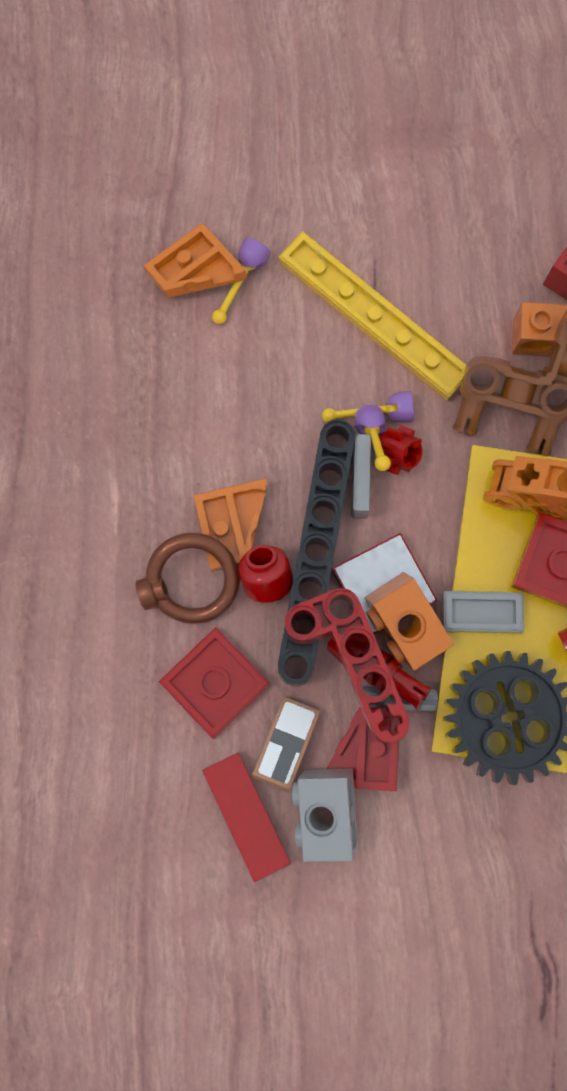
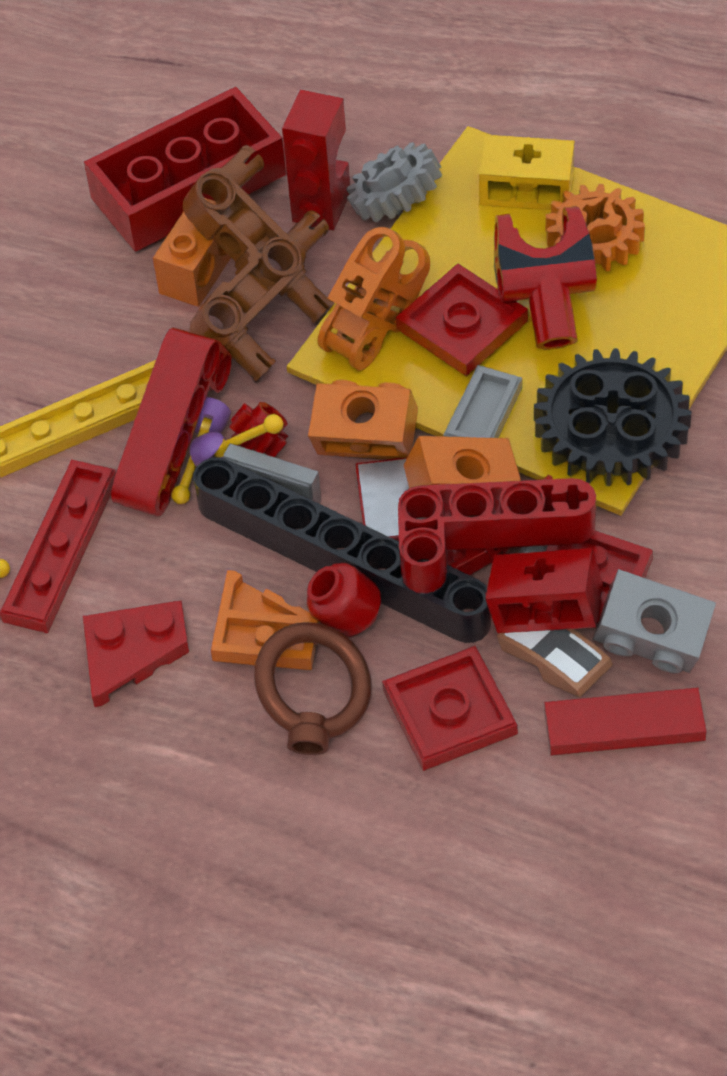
camera: 65 degrees left, 25 degrees down
(186, 436) = (132, 645): none -> red wing
(254, 348) = (58, 547): none -> red tile
(320, 745) = (544, 590): none -> red brick
(378, 378) = (167, 418): none -> red beam
(426, 503) = (384, 436): none -> orange brick

